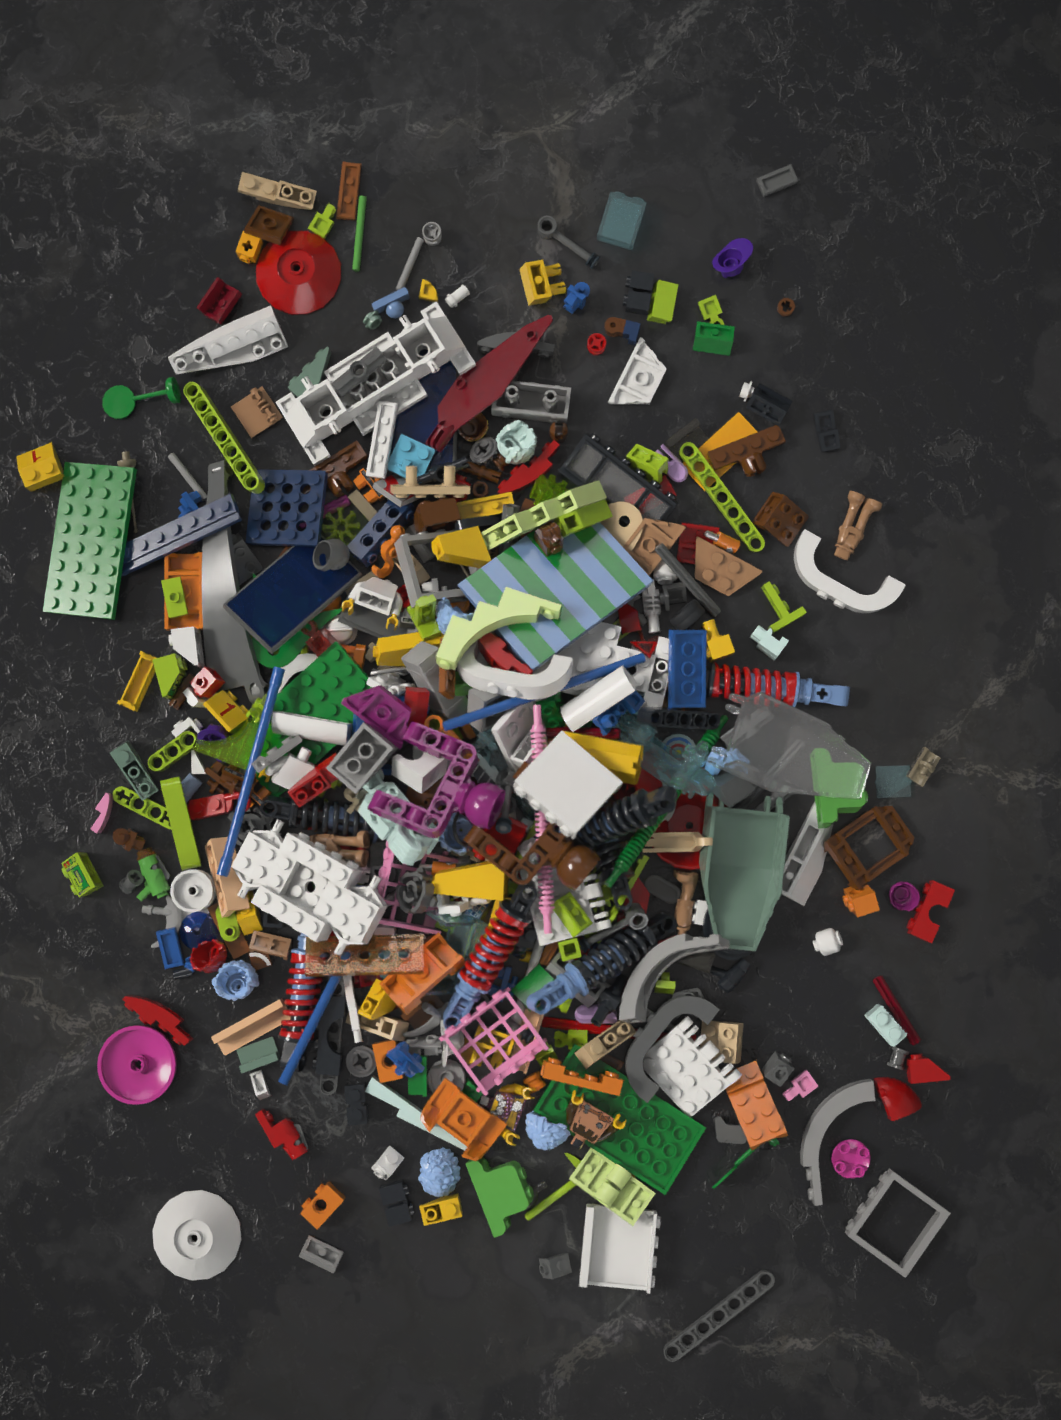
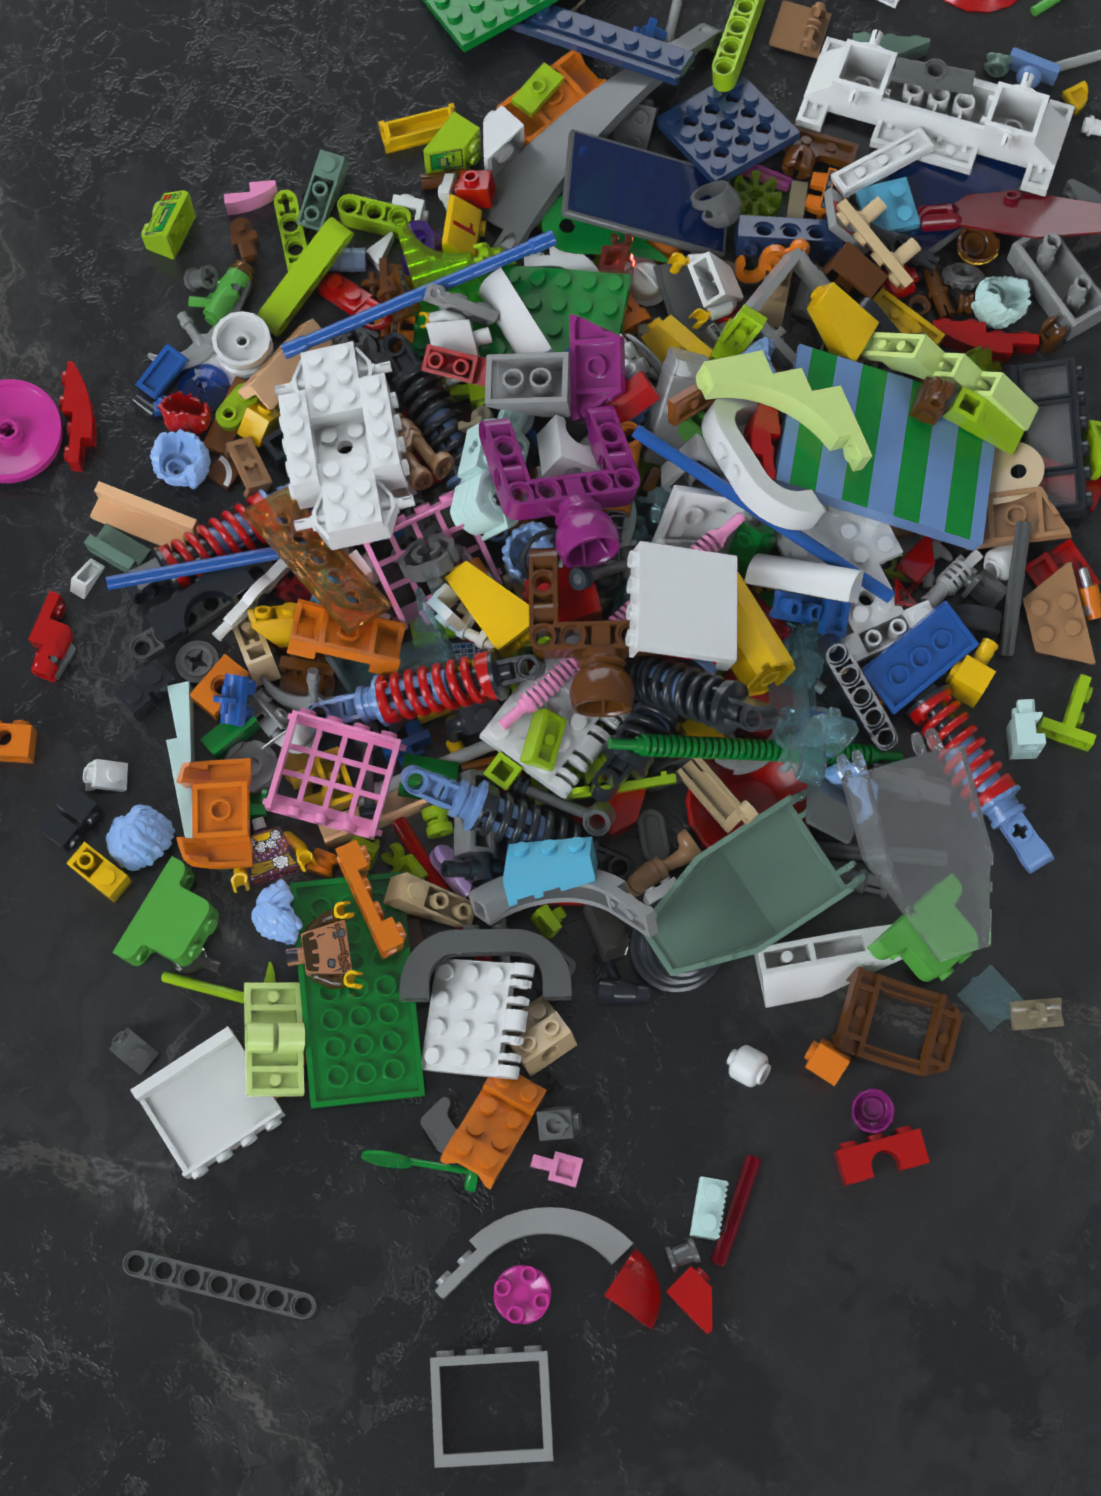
camera: 50 degrees right, 10 degrees down
(642, 967) = (548, 865): none -> medium azure wedge

